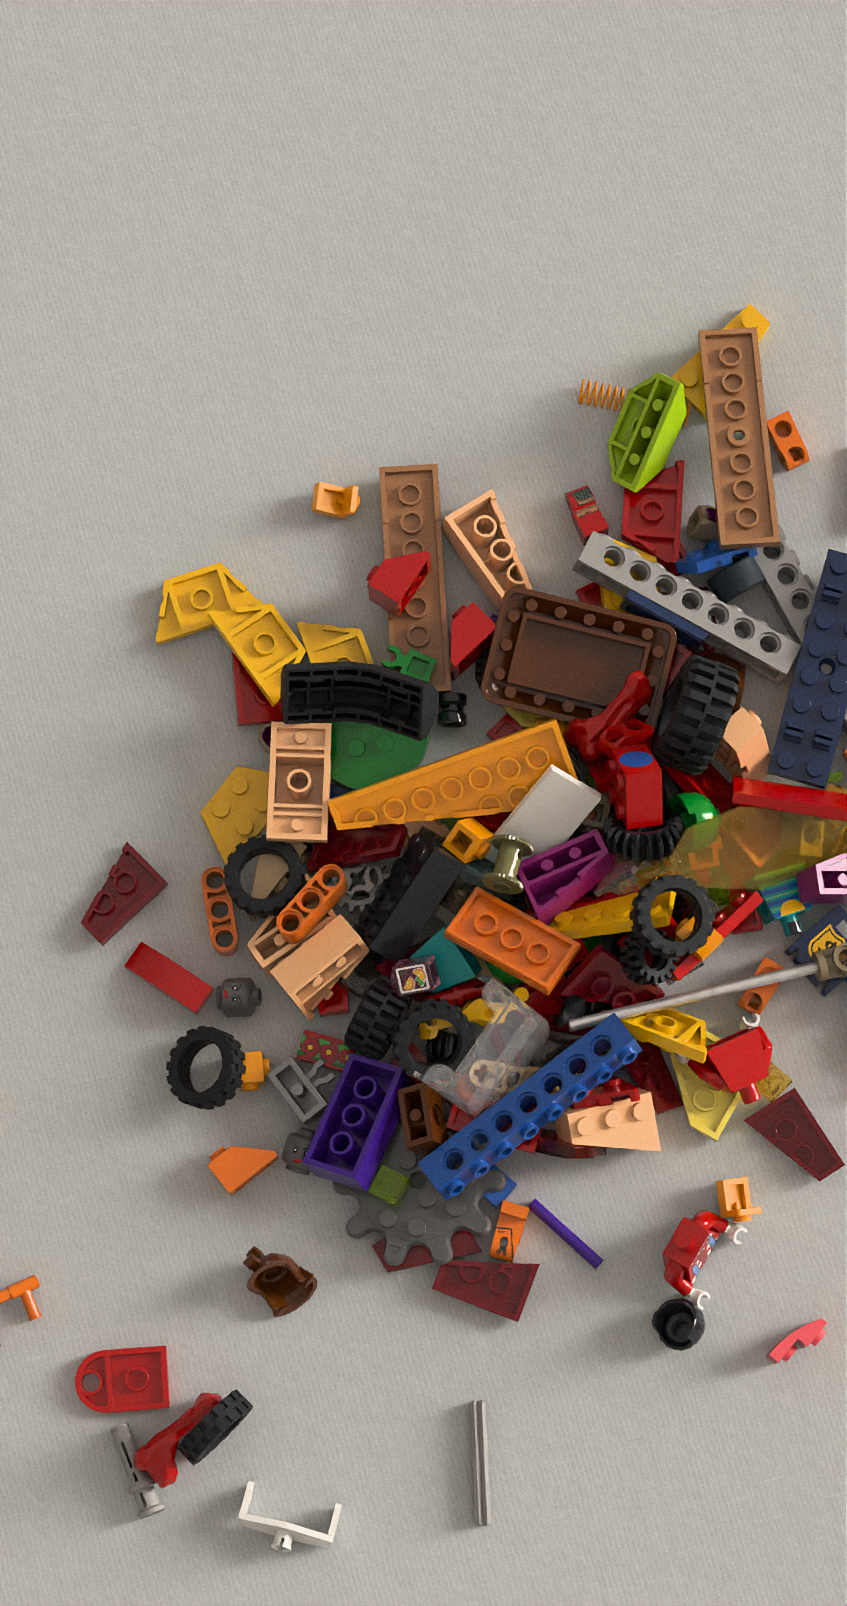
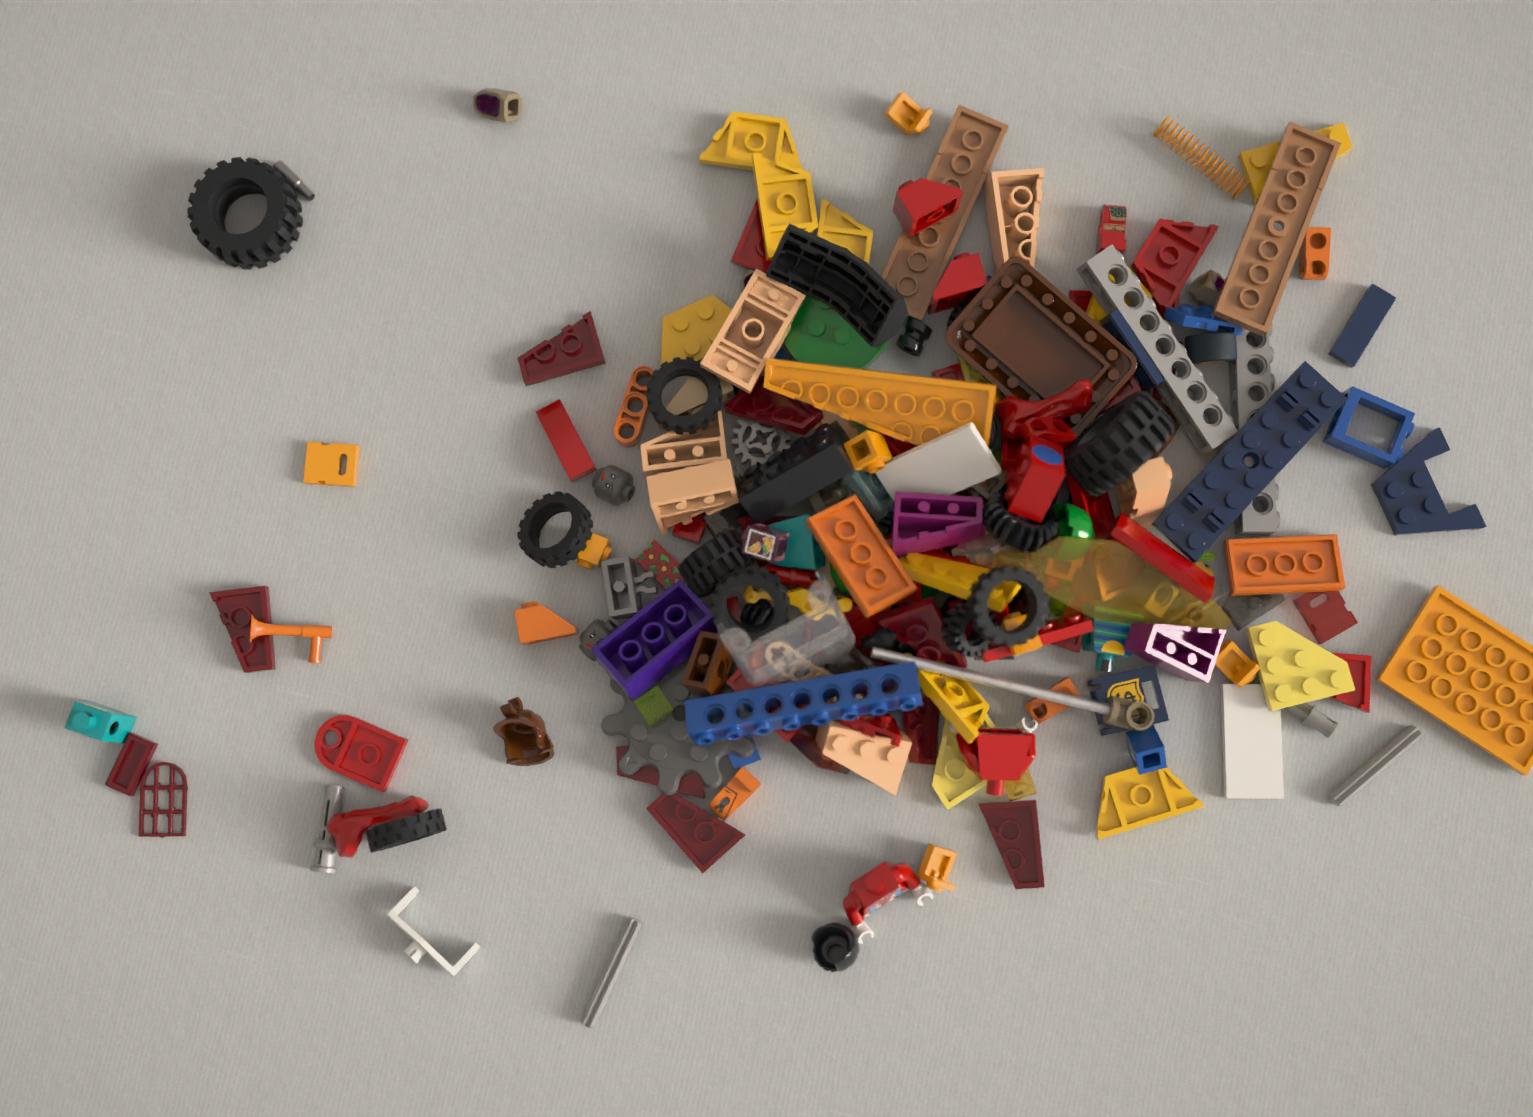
camera: 30 degrees right, 5 degrees up
(314, 889) = (701, 449): orange beam -> none
(414, 664) = (901, 281): green plate -> none
(507, 864) = (890, 488): olive hose -> none
(565, 1233) = (780, 820): dark purple bar -> none
(646, 430) = (1201, 183): lime wedge -> none
(804, 1335) = (938, 1011): coral slope -> none

